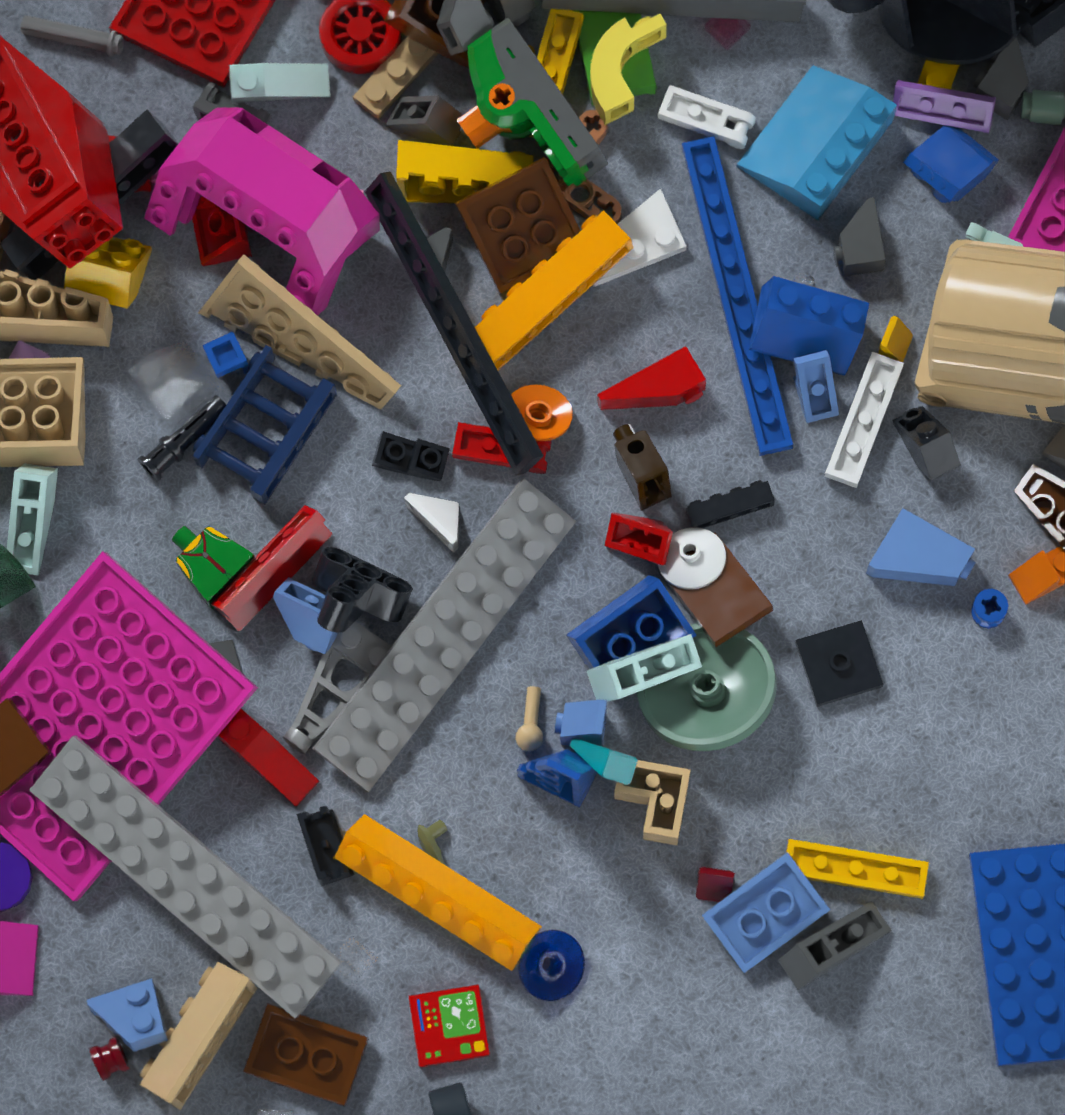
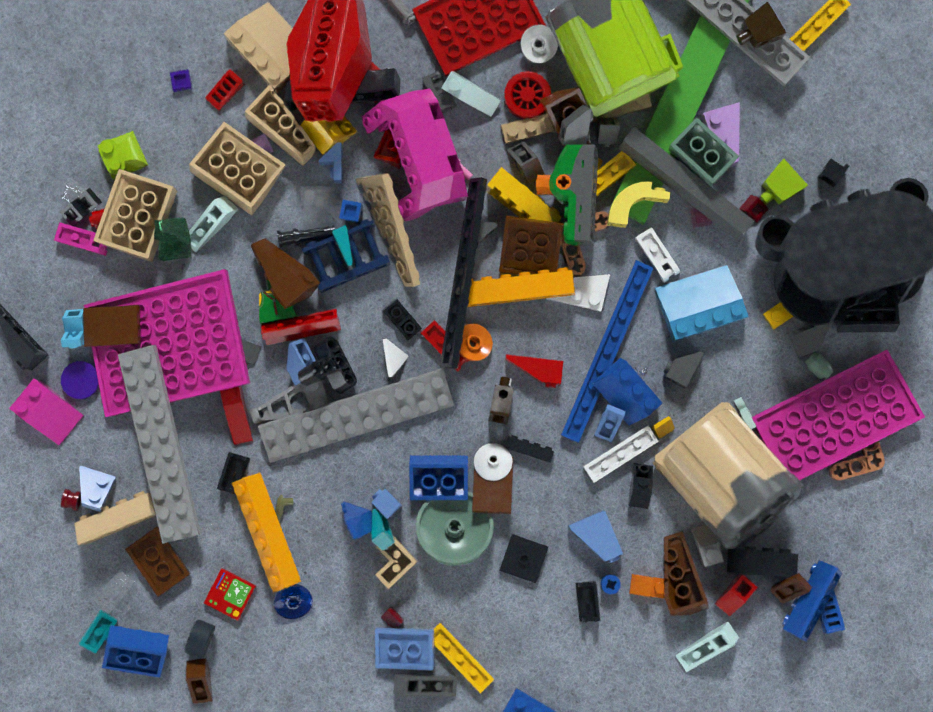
camera: 30 degrees right, 10 degrees up
(148, 303) = (334, 157): none -> medium blue slope
(208, 507) = (288, 277): none -> reddish brown wedge
(247, 401) = (342, 239): none -> teal slope
(529, 736) = (359, 490): tan bar -> none
(639, 537) = (477, 434): red slope -> none
(644, 669) = (429, 500): light aqua slope -> none
(944, 106) = (771, 331): medium lavender plate -> none
(951, 163) = (754, 360): blue slope -> none
(977, 654) = (587, 601): none -> black hinge

